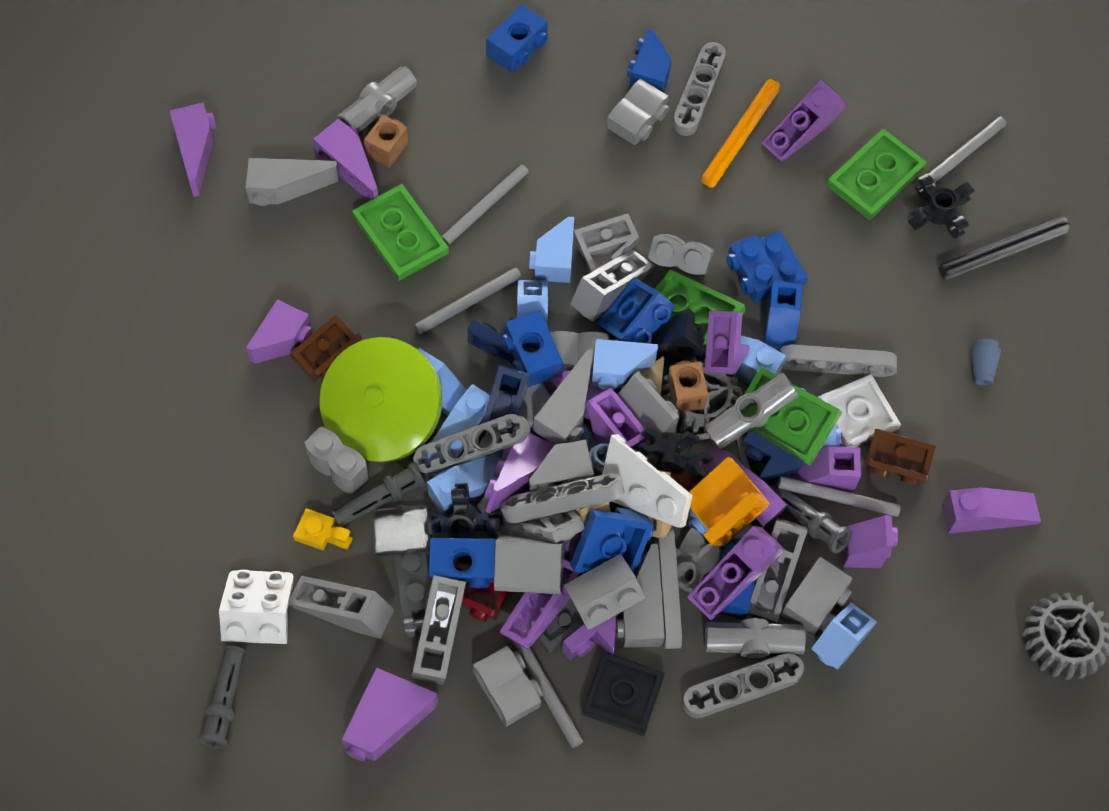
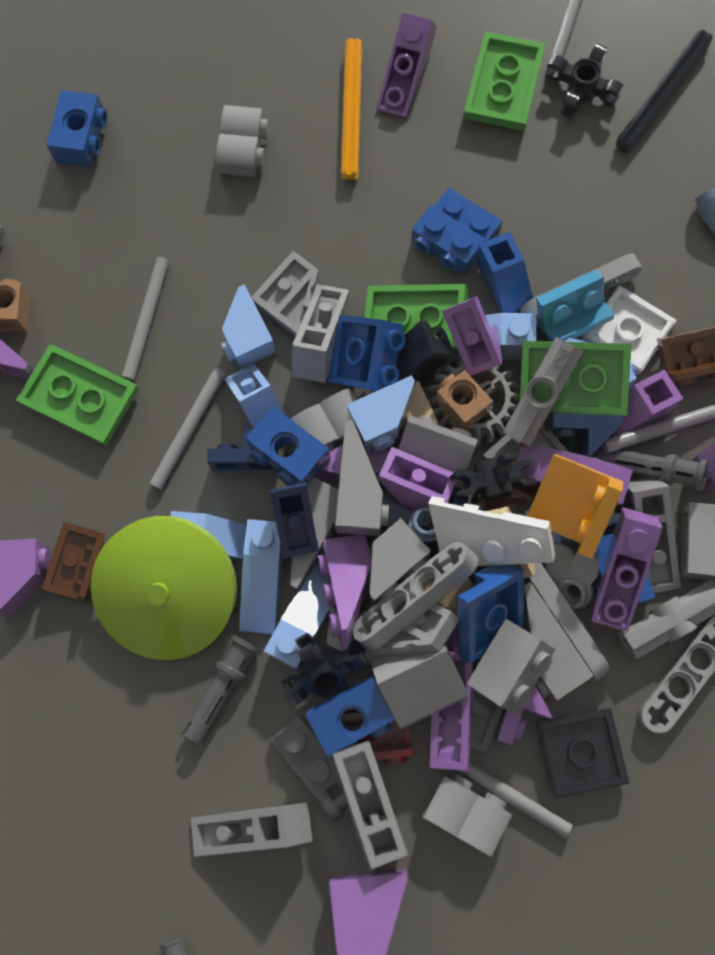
camera: 20 degrees left, 10 degrees up
(256, 607) = (164, 881): white bracket -> none
(319, 529) = (179, 759): yellow plate -> none
(335, 460) = (161, 677): light grey brick -> none
(400, 530) = (263, 711): clear smoke piece -> none
(472, 448) = (284, 585): light grey beam -> none
(652, 62) = (225, 82): blue slope -> none
(672, 251) = (379, 262): light grey brick -> none
(699, 88) = (285, 85): light grey beam -> none
(820, 367) = (573, 308): none -> dark azure bracket

